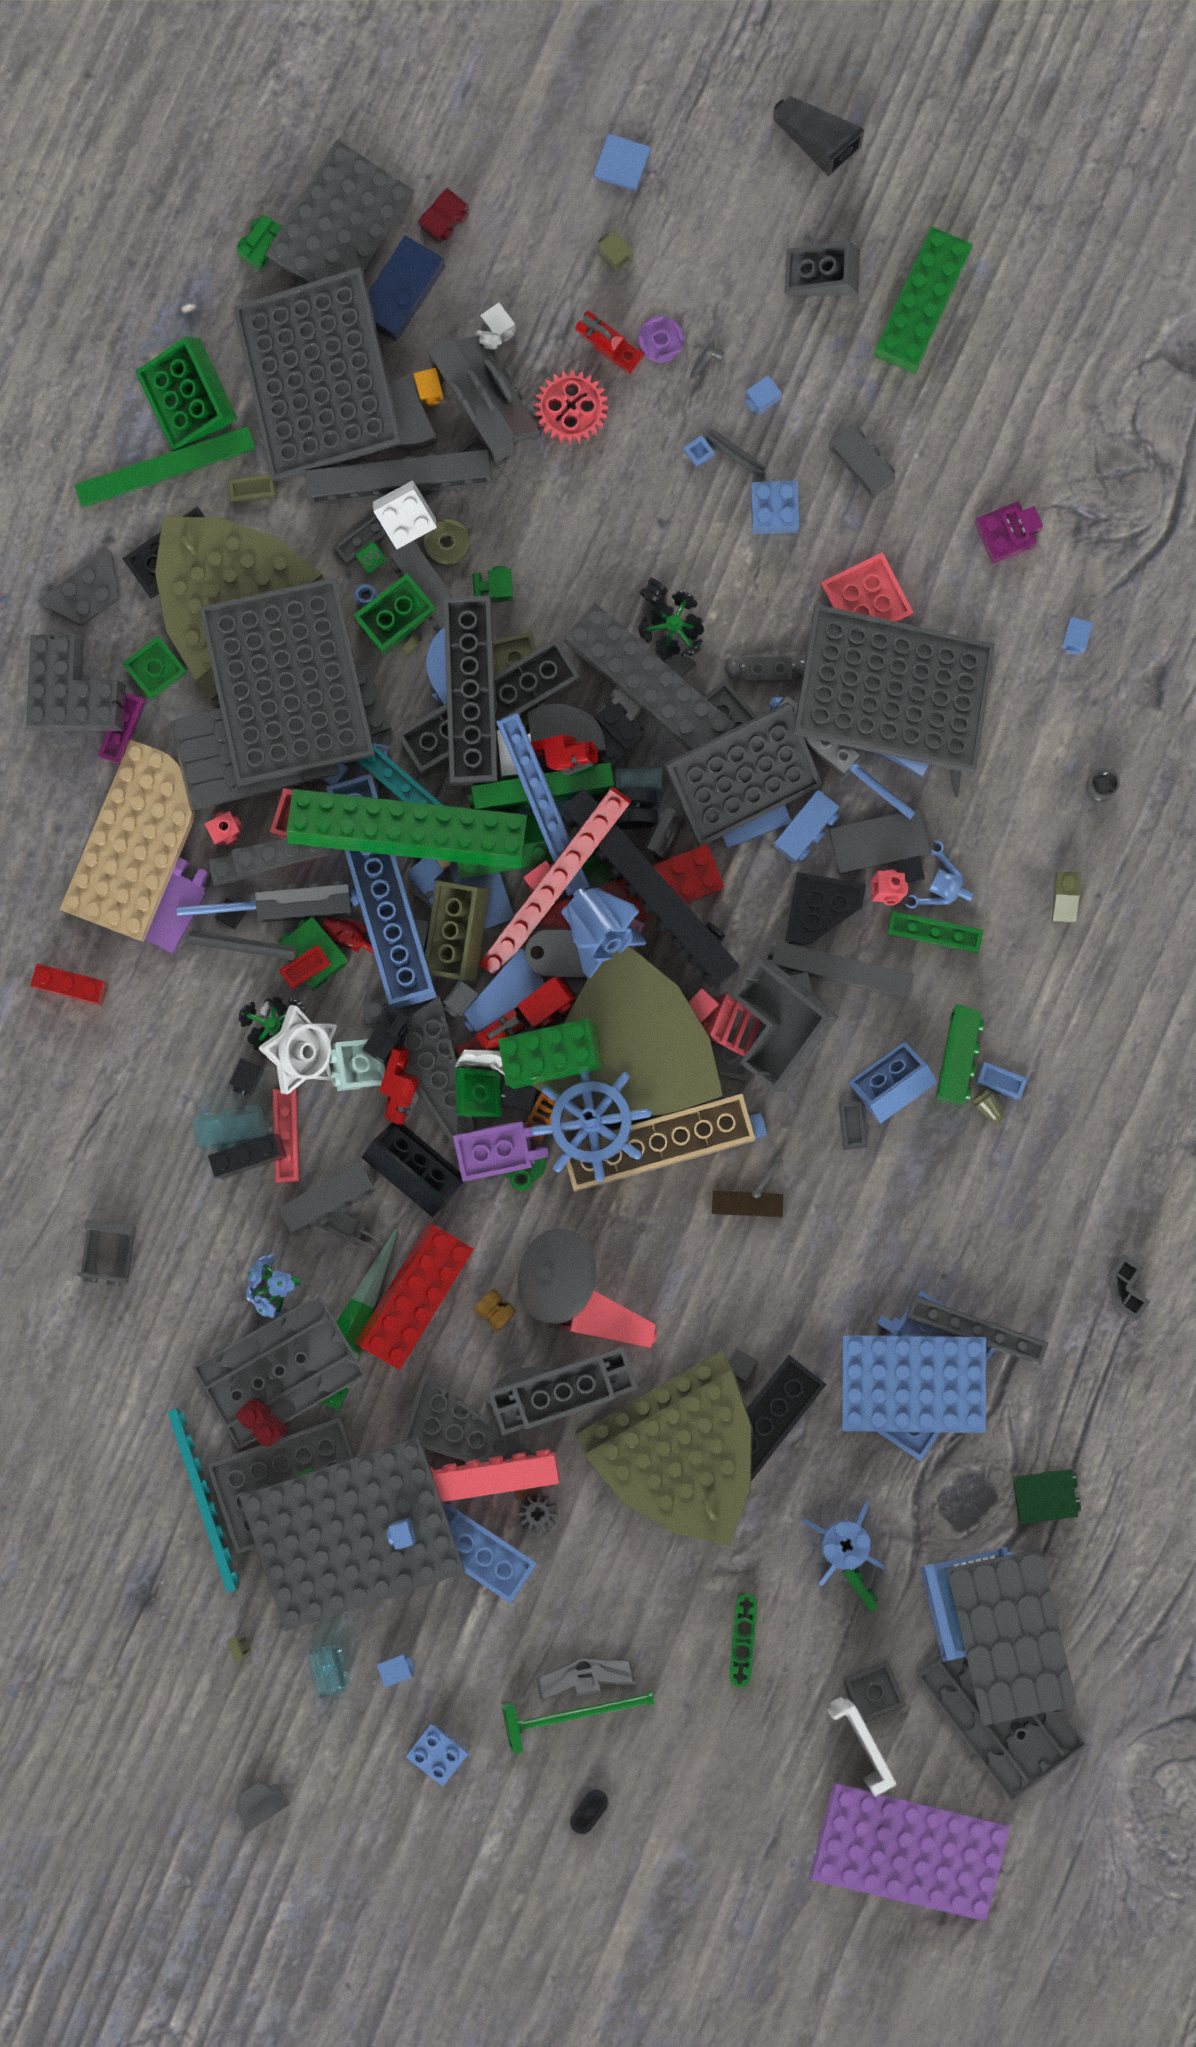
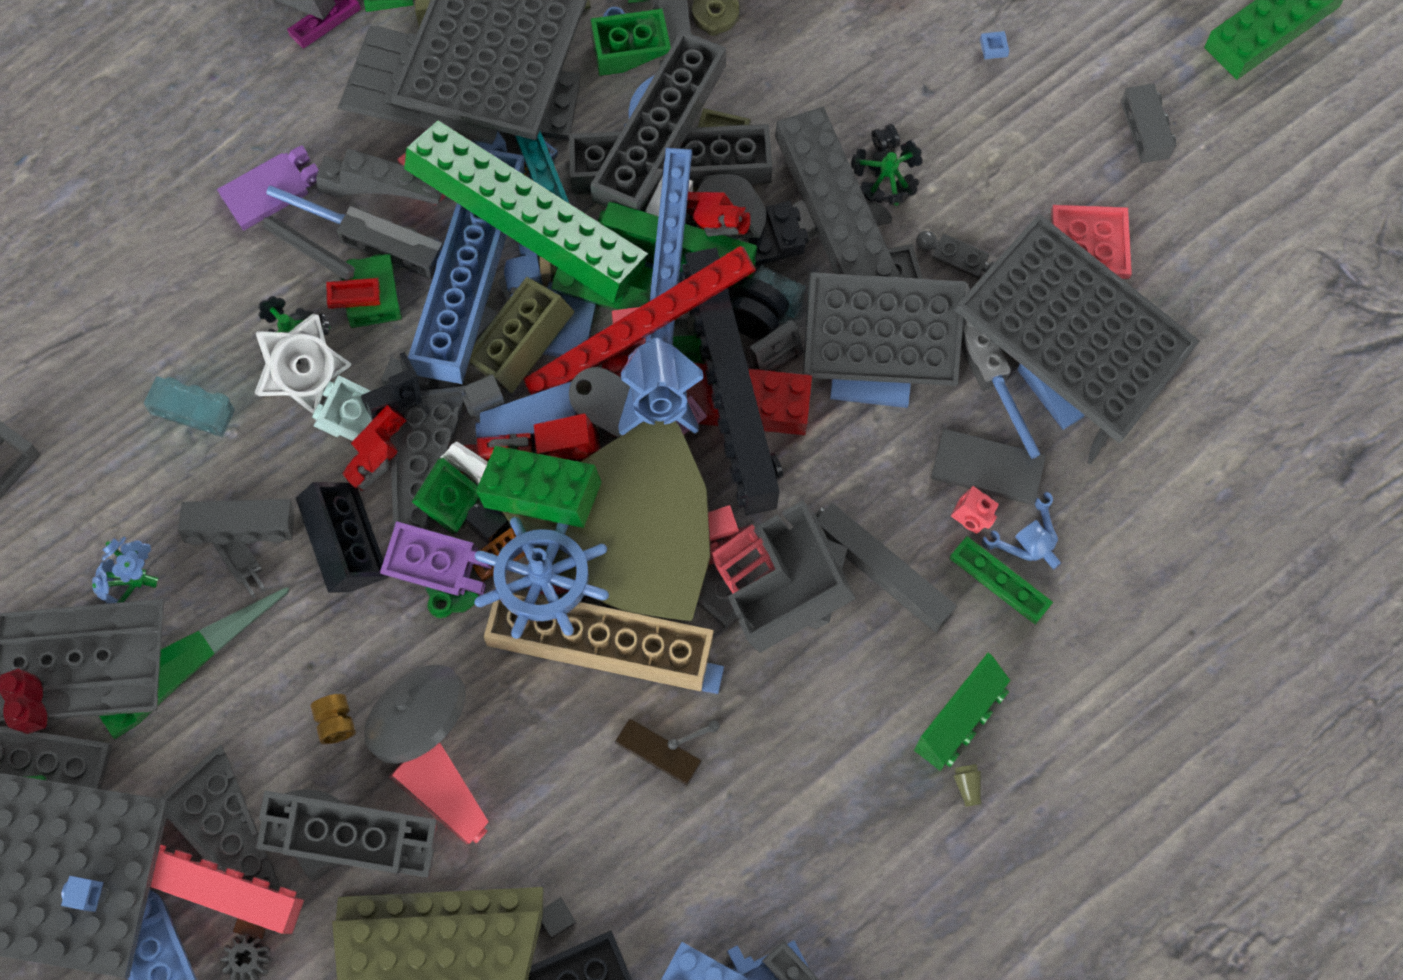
camera: 20 degrees right, 15 degrees down
(69, 984) = (127, 204): red brick -> none
(132, 845) = (266, 117): tan plate -> none
(219, 822) = (359, 138): coral brick -> none
(230, 919) = (317, 225): black tile -> none
(246, 1077) = (235, 368): black brick -> none
(247, 1156) = (186, 438): black brick -> none
(286, 1125) = (238, 444): coral tile -> none
(347, 933) = (412, 288): red animal -> none
(411, 644) = (631, 75): olive tile -> none
(414, 1296) = (258, 659): red brick -> none
(498, 584) = (742, 65): green brick -> none
(735, 453) = (1029, 63): dark grey axle -> none
(762, 395) = (1080, 27): medium blue brick -> none
(774, 507) = (1041, 121): medium blue brick -> none
(807, 827) = (921, 415): medium blue brick -> none
(821, 905) = (896, 496): black plate -> none
(852, 1125) = (813, 729): dark grey tile -> none
(893, 1082) = (879, 706): medium blue slope -> none
(912, 868) = (1008, 509): black tile -> none
(1001, 1081) = (996, 766): medium blue tile -> none
(1008, 531) = (1264, 248): magenta piece -> none
(1066, 896) = (1158, 613): olive slope -> none
(1076, 635) = (1288, 372): medium blue brick -> none
(1102, 785) = (1249, 523): dark grey wheel -> none

